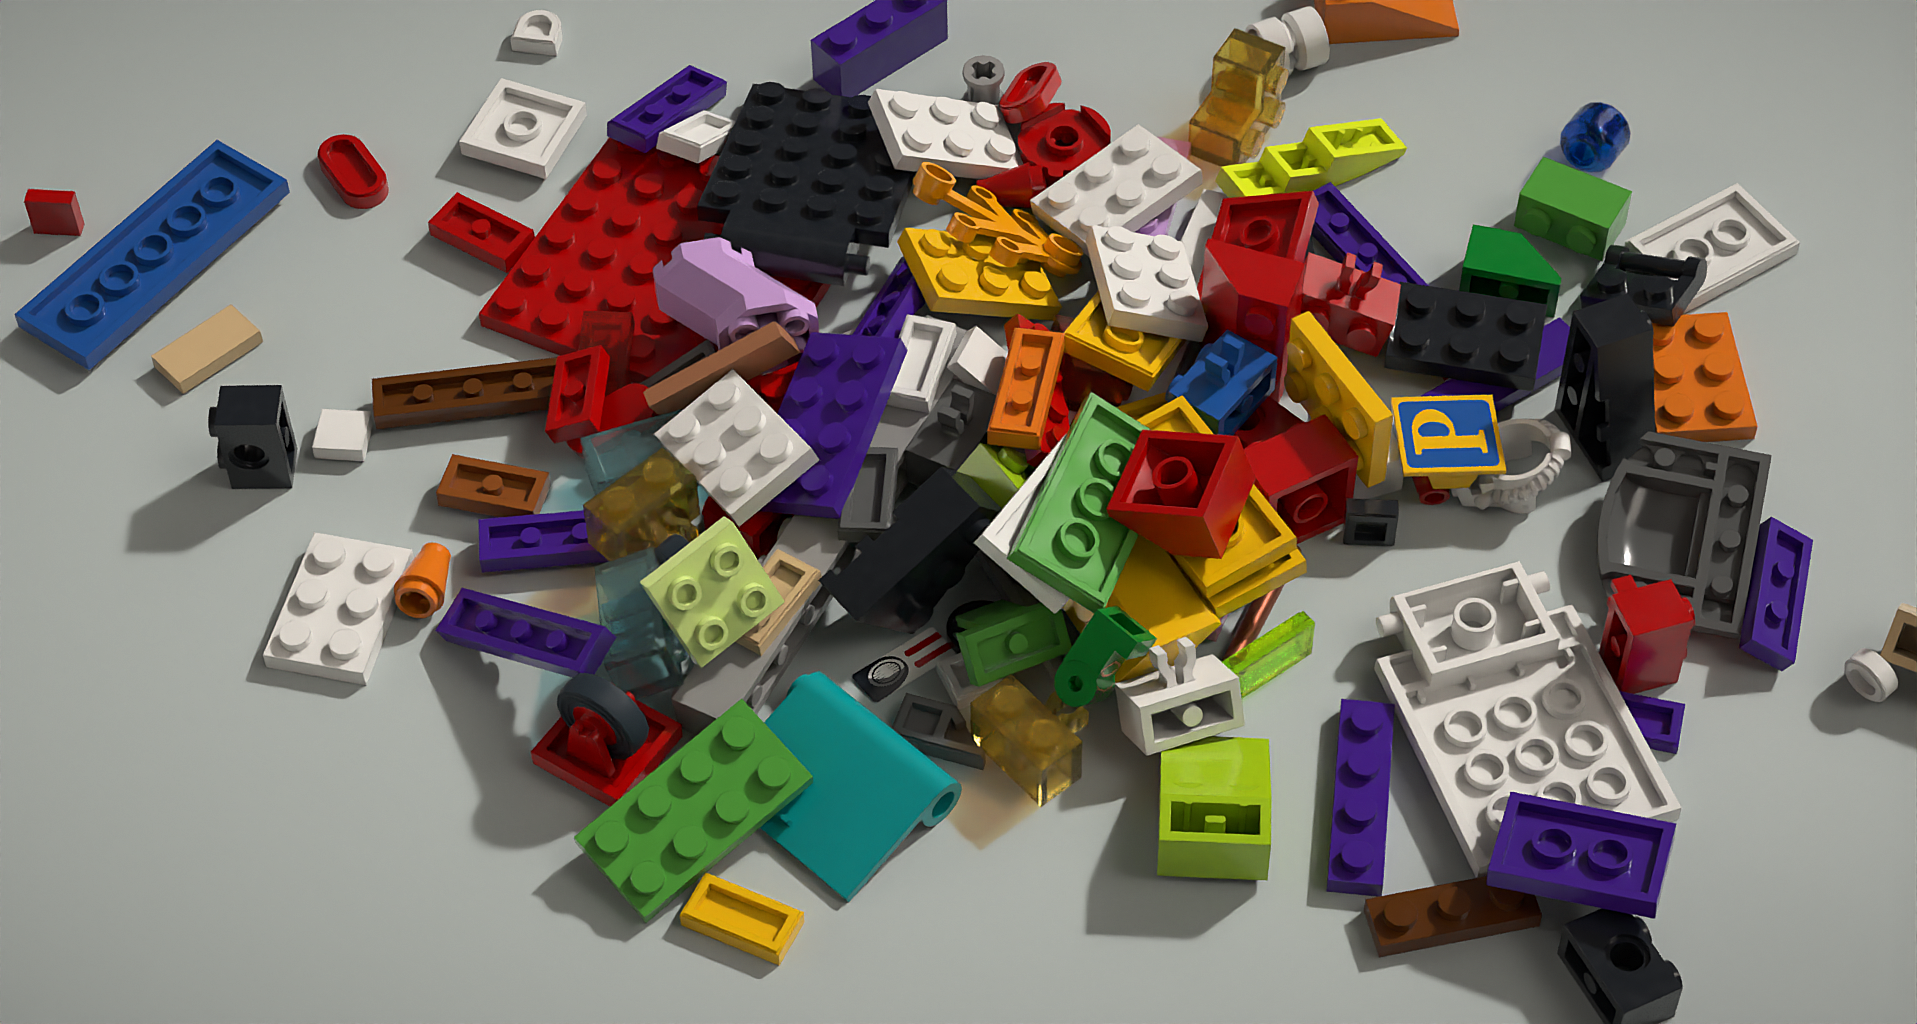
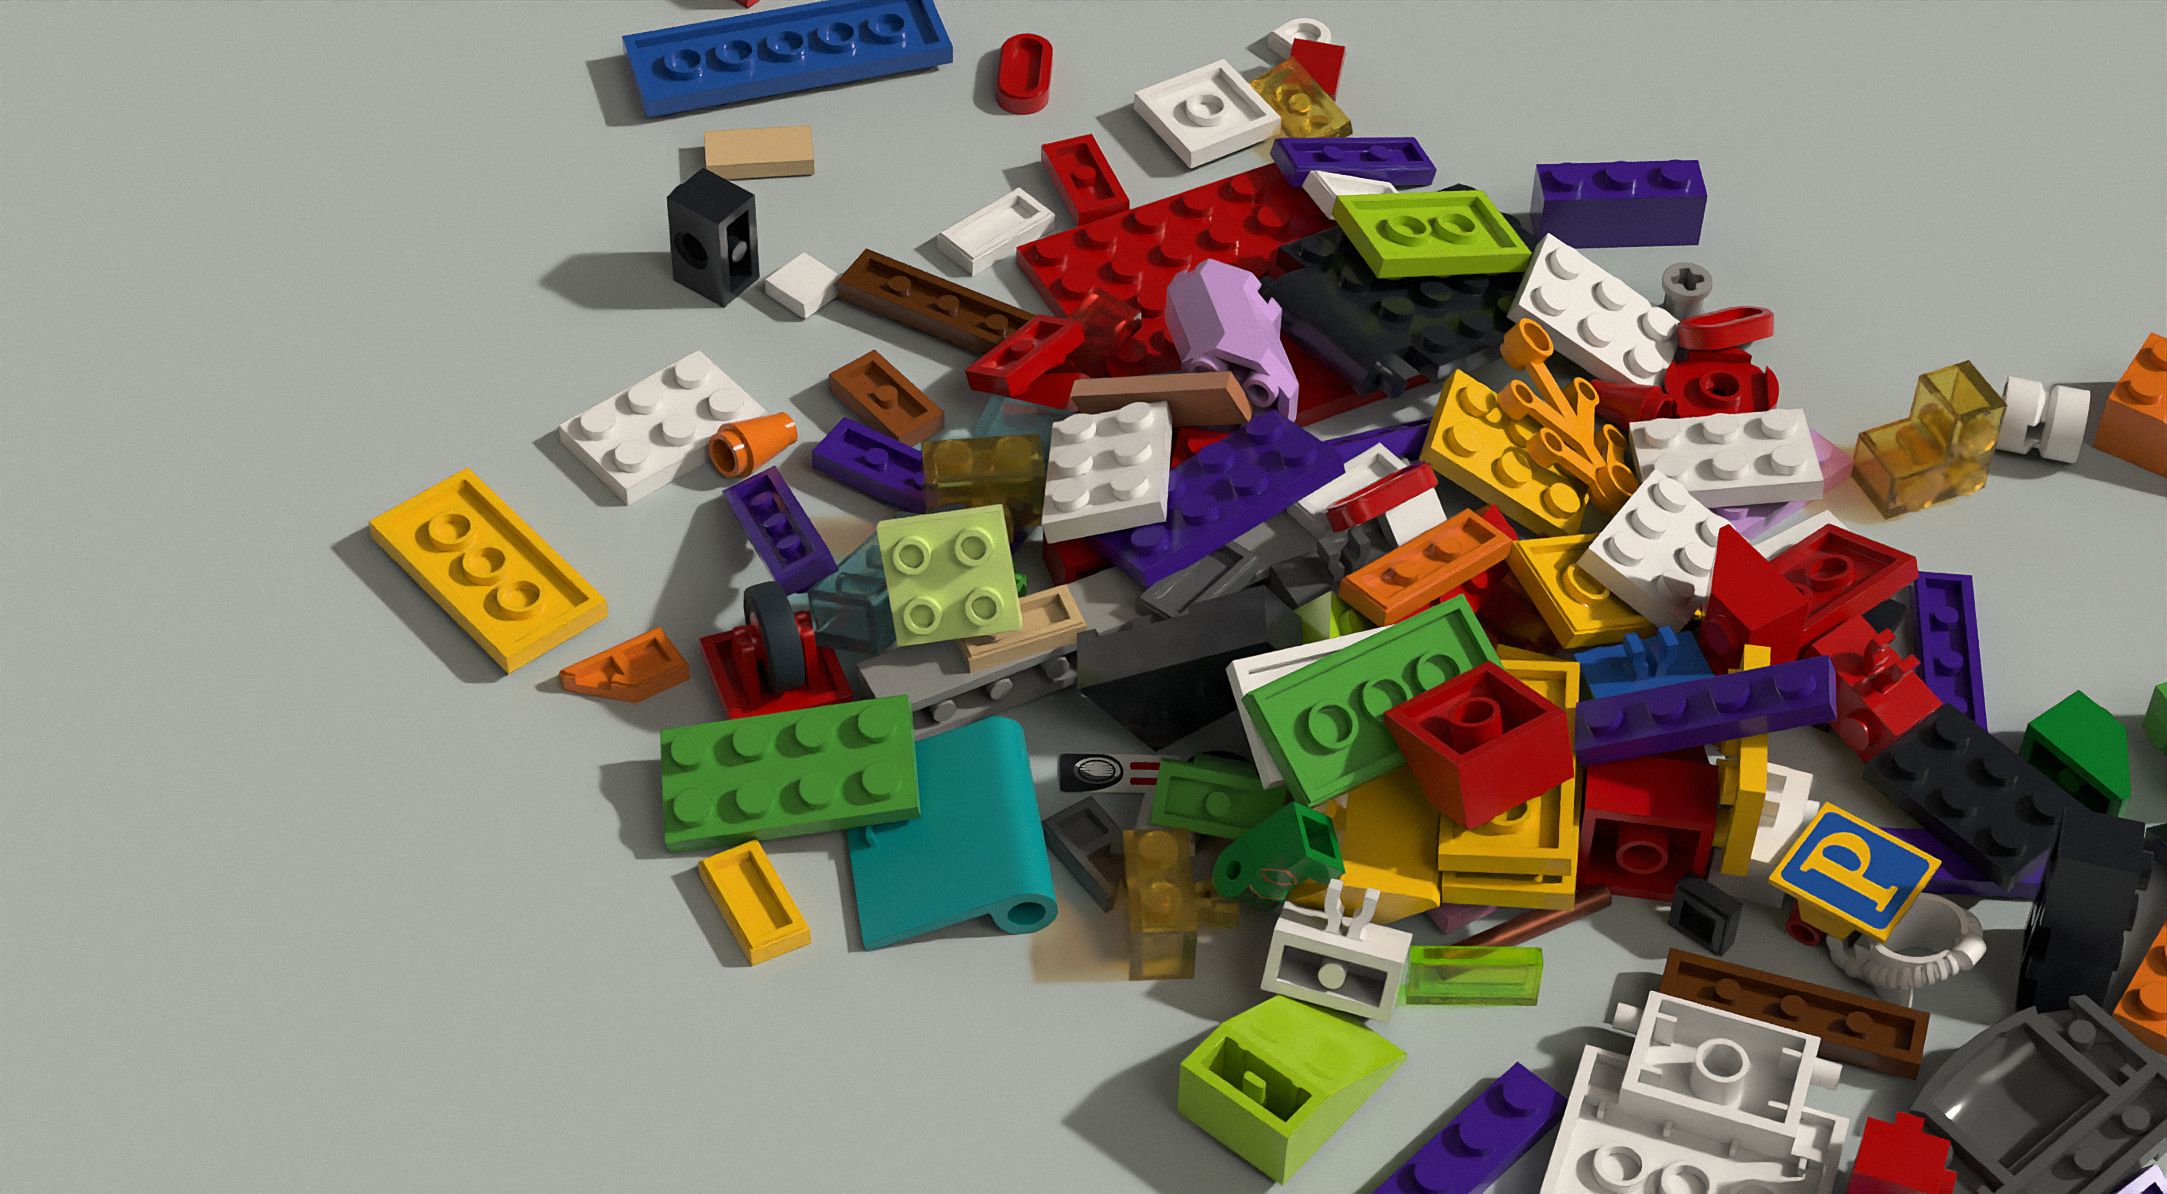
camera: 35 degrees right, 5 degrees down
(315, 798) = (488, 569): none -> yellow plate
(447, 310) = (995, 231): none -> white tile
(491, 807) = (629, 670): none -> orange tile
(571, 50) = (1322, 62): none -> red tile
(599, 86) = (1301, 103): none -> clear yellow plate
(794, 135) = (1430, 234): none -> lime plate
(953, 354) = (1380, 496): none -> red tile
(1310, 378) = (1706, 711): none -> dark purple plate
(1324, 156) = (1990, 546): neon yellow slope -> none
(1528, 538) = (1849, 1025): none -> reddish brown plate

